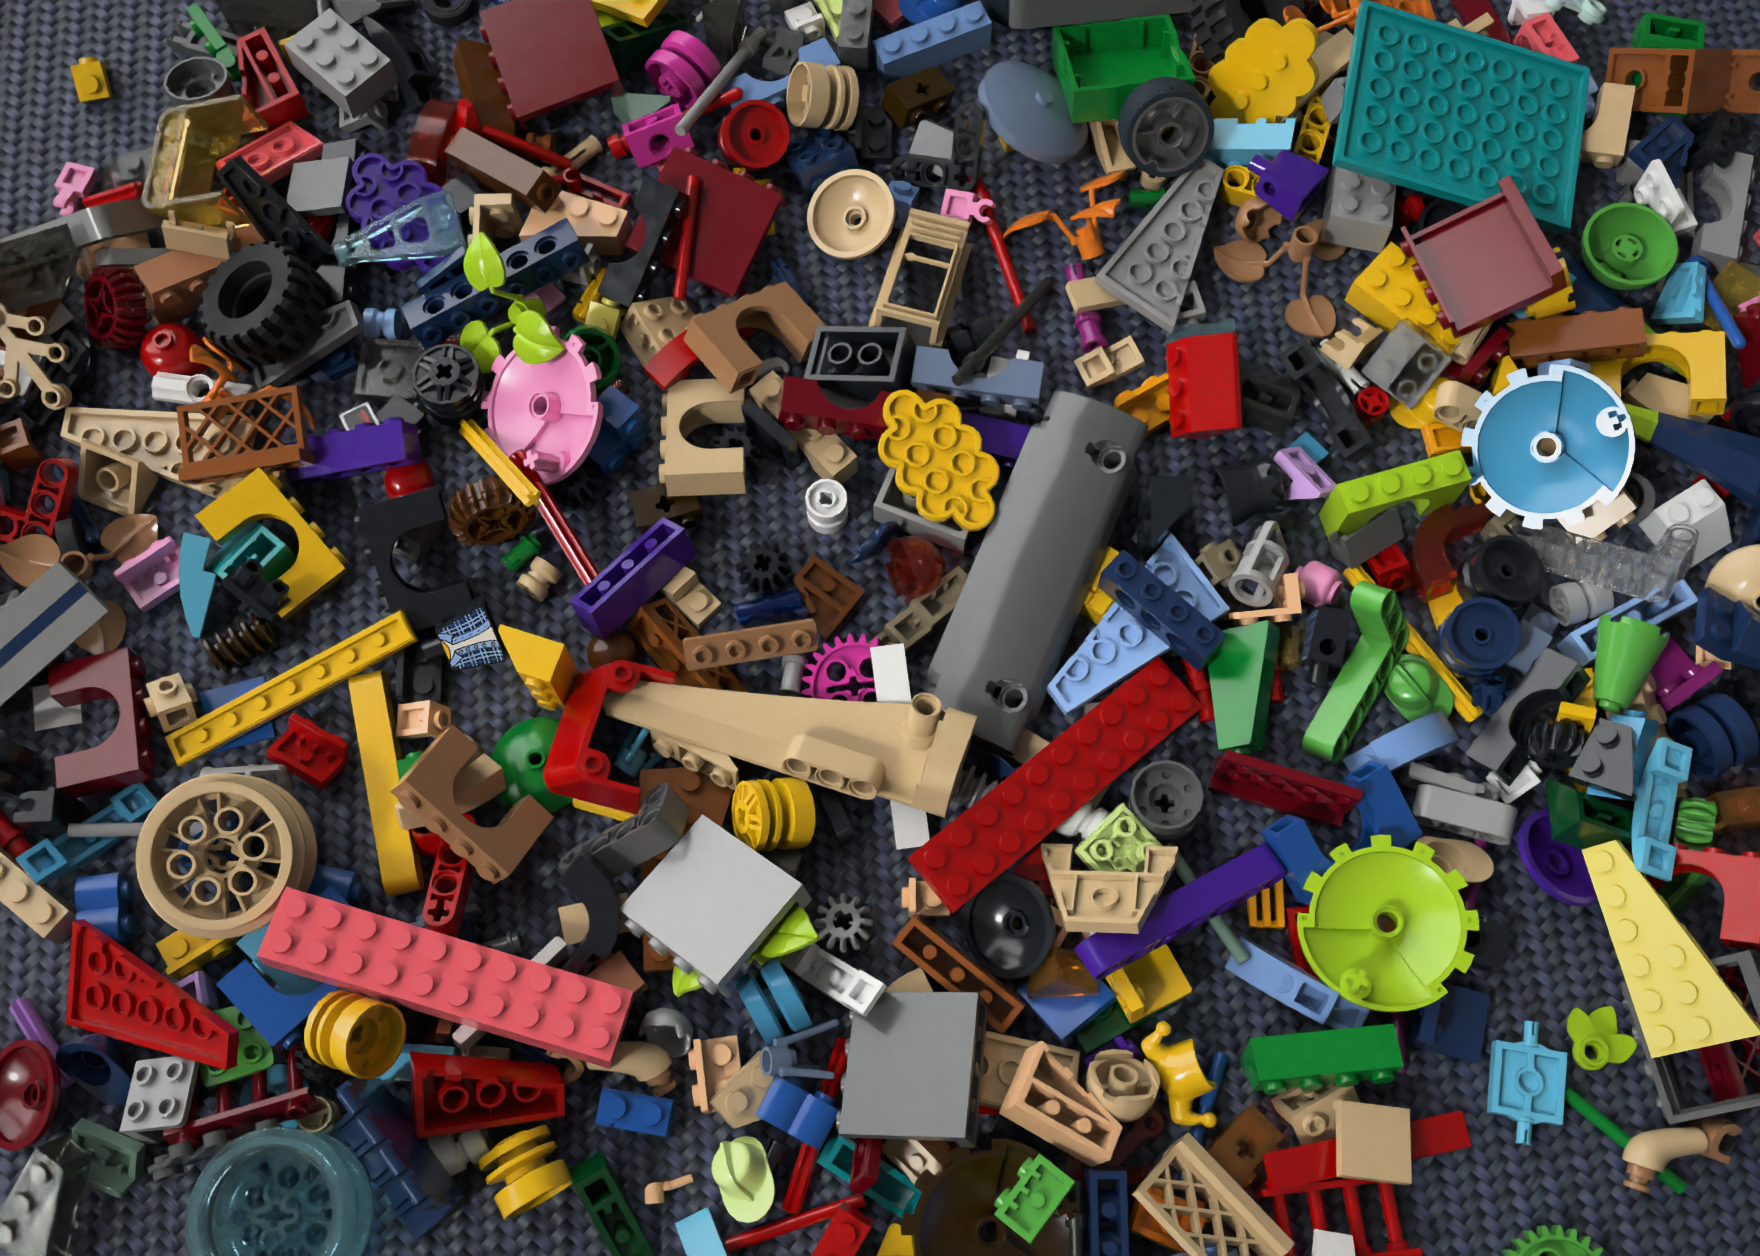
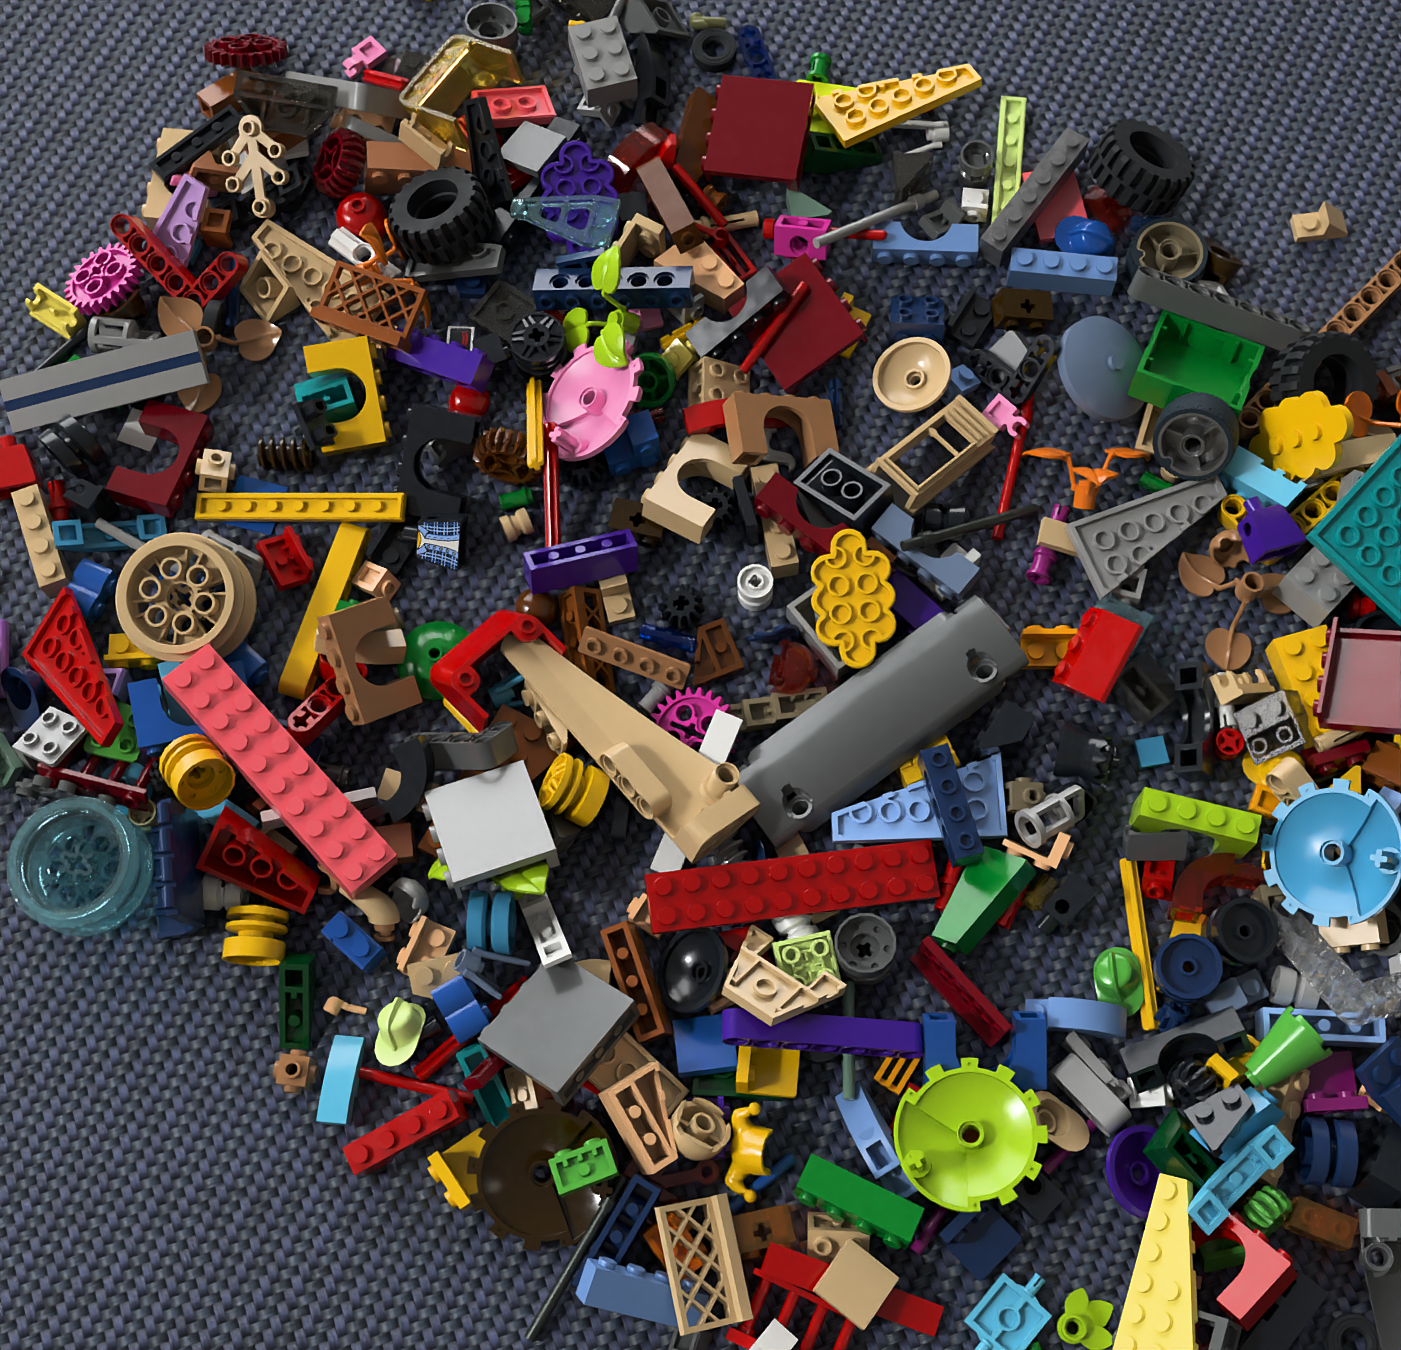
camera: 35 degrees right, 0 degrees up
(152, 574) = (258, 373): bright pink bracket -> none
(194, 582) = (278, 394): medium azure slope -> none
(267, 82) = (544, 48): red wedge -> none
(382, 323) = (517, 273): light blue wheel -> none
(542, 665) = (474, 589): yellow slope -> none
(682, 68) = (853, 194): dark pink wheel -> none
(761, 120) = (858, 275): red wheel -> none
(822, 96) = (945, 271): tan wheel -> none
(847, 911) = (567, 902): light grey gear -> none
(1061, 976) = (705, 1029): clear orange slope -> none
(1109, 364) = (1042, 598): tan slope -> none
(1307, 476) = (1135, 764): lavender slope -> none
(1320, 583) = (1092, 857): bright pink head -> none
(1364, 673) = (1081, 945): bright green beam -> none

